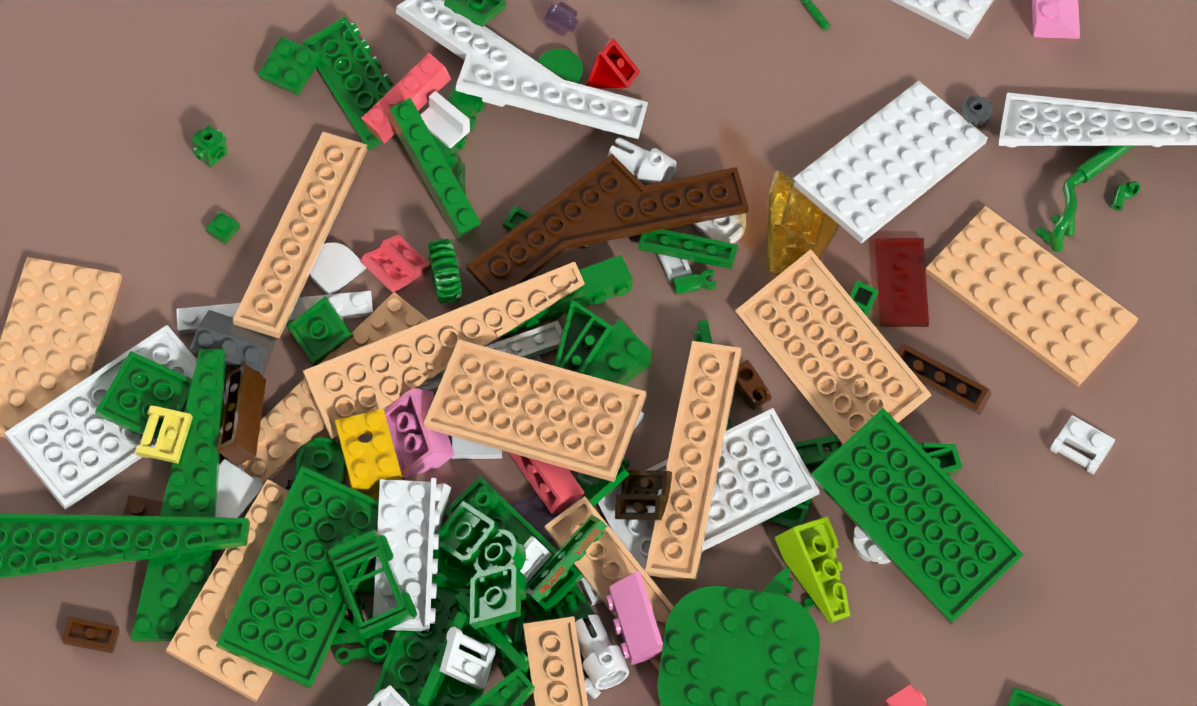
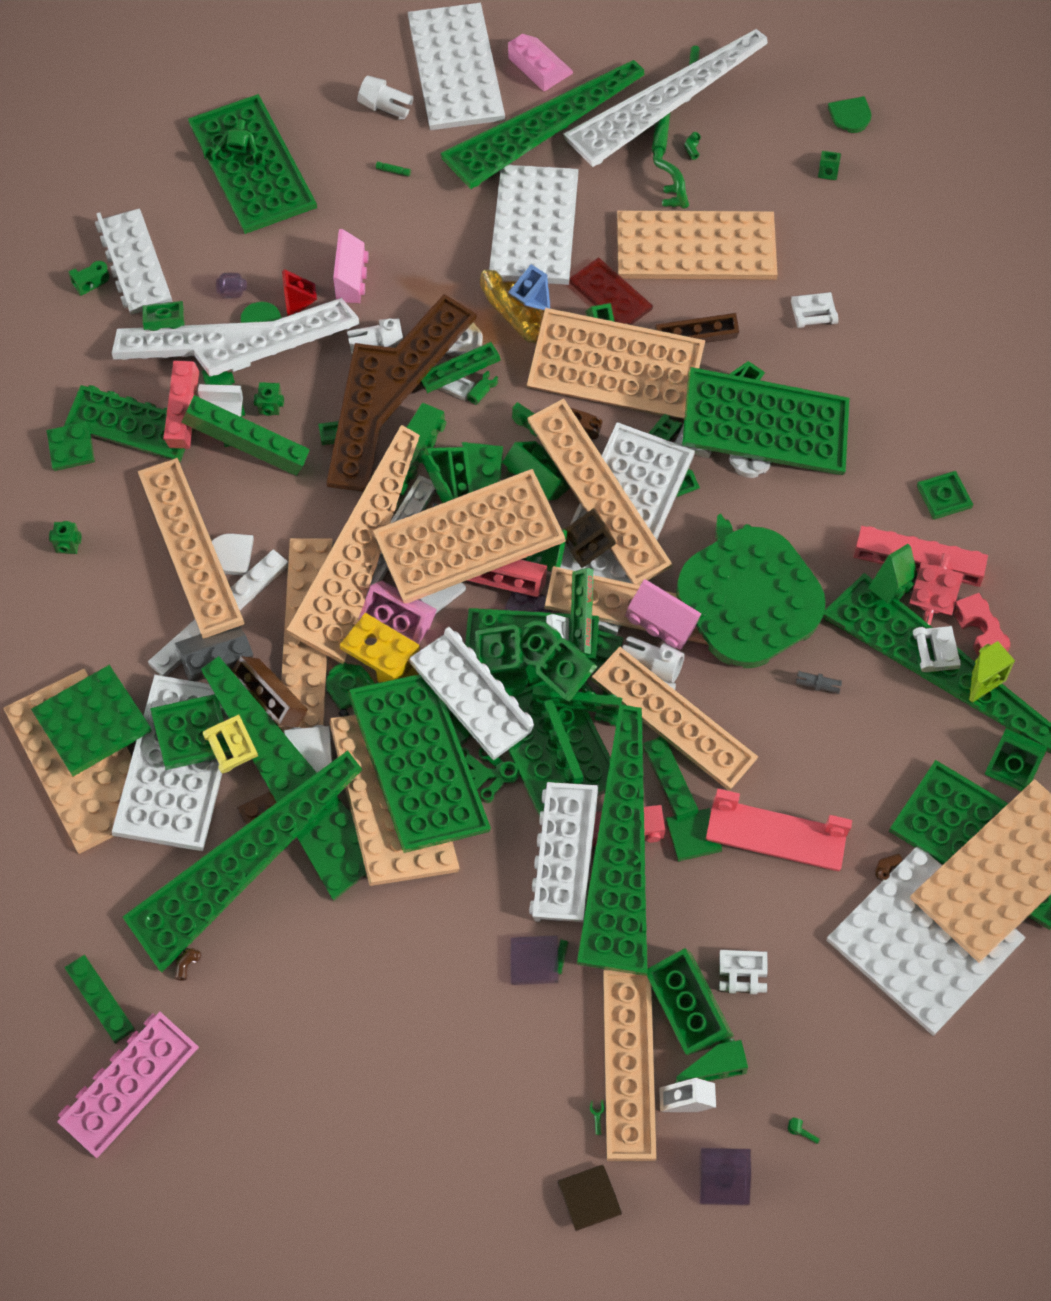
camera: 40 degrees left, 0 degrees up
(79, 323) = (91, 720): none -> green plate
(90, 634) = (302, 919): reddish brown plate -> none
(222, 227) = (126, 585): green plate -> none
(320, 330) = (266, 599): green plate -> none
(361, 550) = (443, 717): green piece -> none
(395, 263) = (272, 519): coral slope -> none
(444, 271) = (315, 497): green gear -> none
(464, 665) = (580, 732): white plate -> none
(493, 150) = (269, 399): none -> green brick
(663, 385) = (531, 455): none -> green slope
(678, 78) = (350, 268): none -> bright pink slope
(813, 560) = (719, 496): lime wedge -> none
(818, 223) = (532, 289): none -> medium blue slope
(936, 61) = (501, 145): none -> green wing
(976, 110) = (556, 156): dark grey piece -> none

